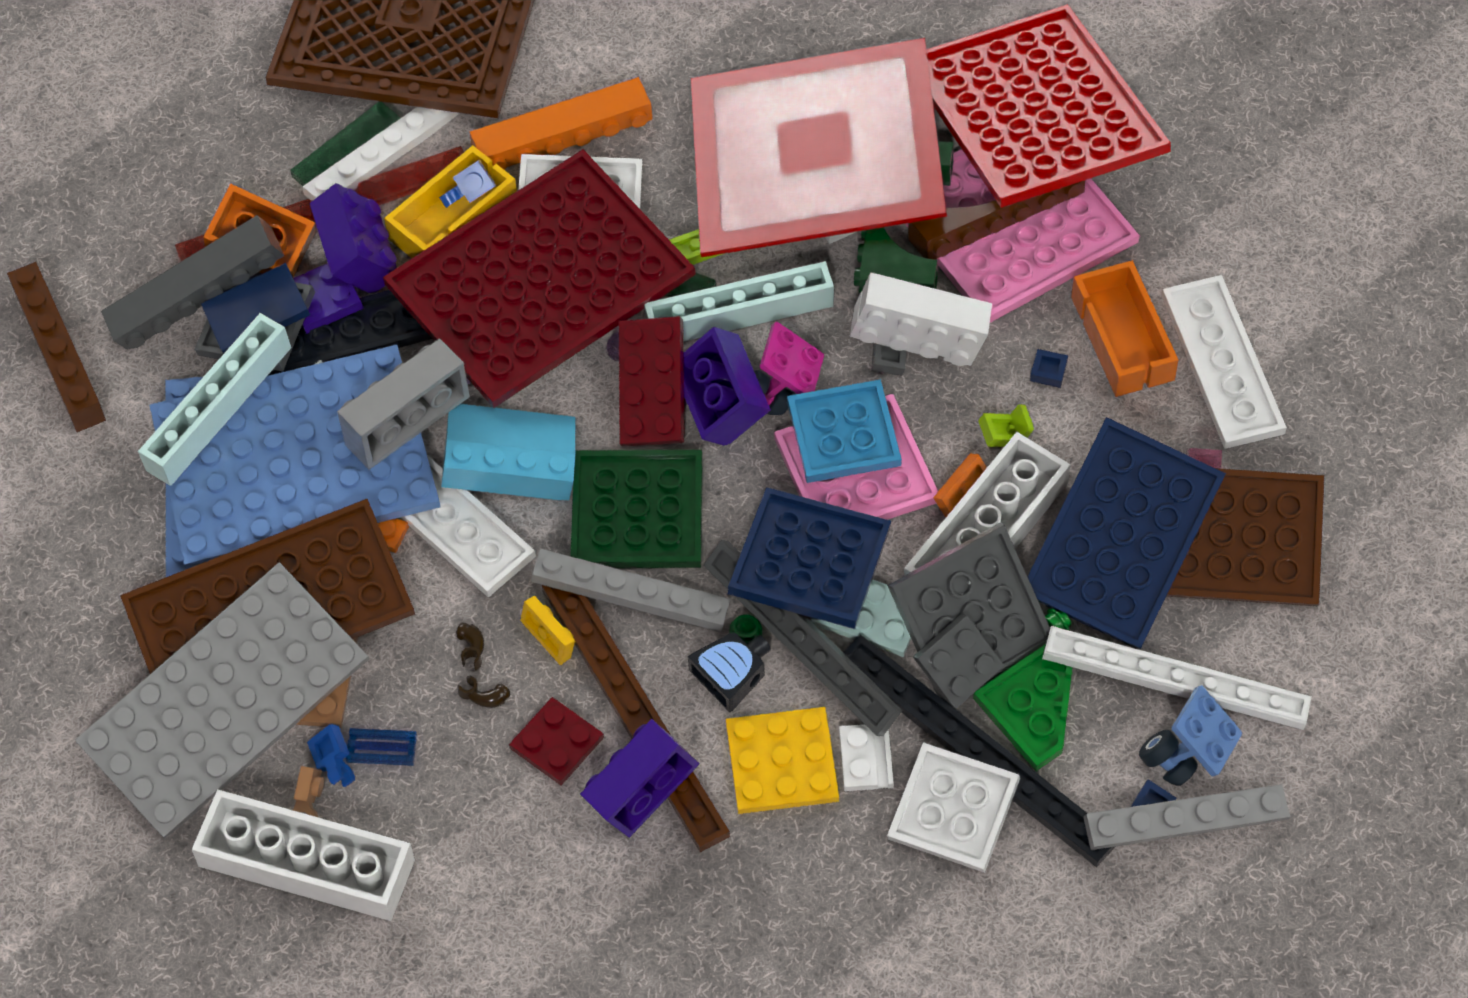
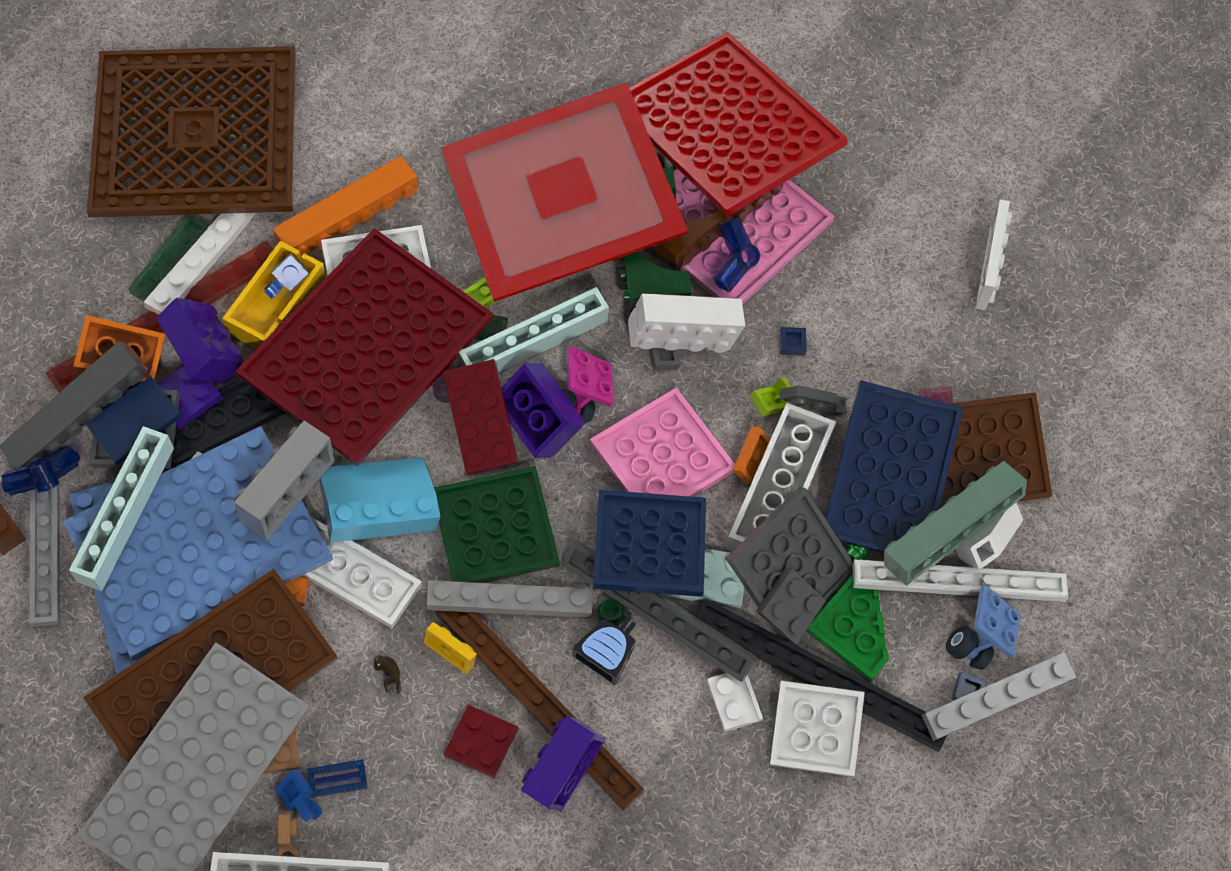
camera: 20 degrees left, 5 degrees up
(123, 433) = (44, 558): none -> light grey plate
(140, 348) = (41, 473): none -> clear blue piece
(489, 699) = (417, 716): dark brown arm -> none
(782, 760) = (668, 717): yellow plate -> none
(844, 431) = (647, 428): dark azure plate -> none
(998, 270) = (735, 267): none -> clear blue piece
(1053, 434) = (814, 398): none -> dark grey hinge
(1124, 328) = (844, 297): orange piece -> none
(1183, 605) = (954, 522): none -> sand green brick
(1223, 362) = (926, 309): white plate -> none
(1227, 632) = (991, 539): none -> white slope
(1322, 311) = (994, 258): none -> white plate

